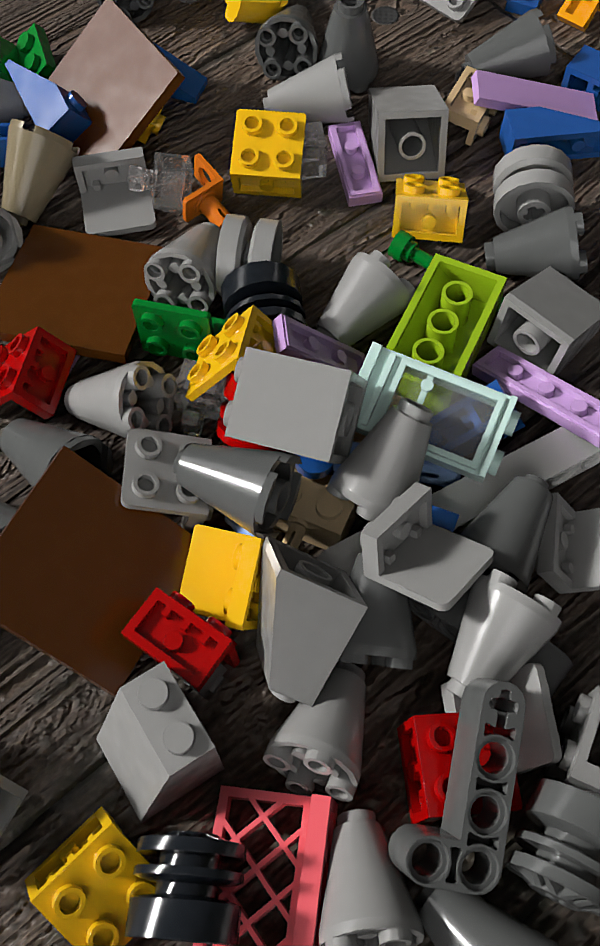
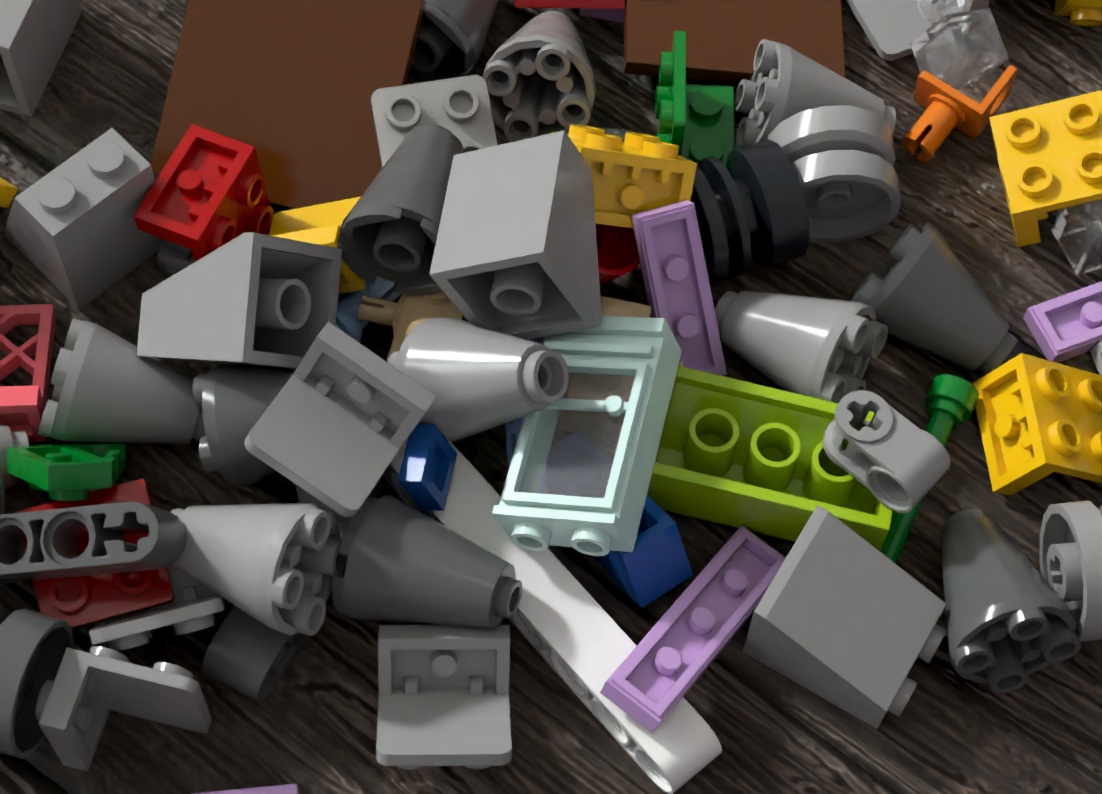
camera: 75 degrees right, 0 degrees up
(336, 233) = (936, 302): none -> dark grey cone
(397, 772) = (68, 469): none -> green wing
(466, 262) = (885, 454): none -> light grey piece

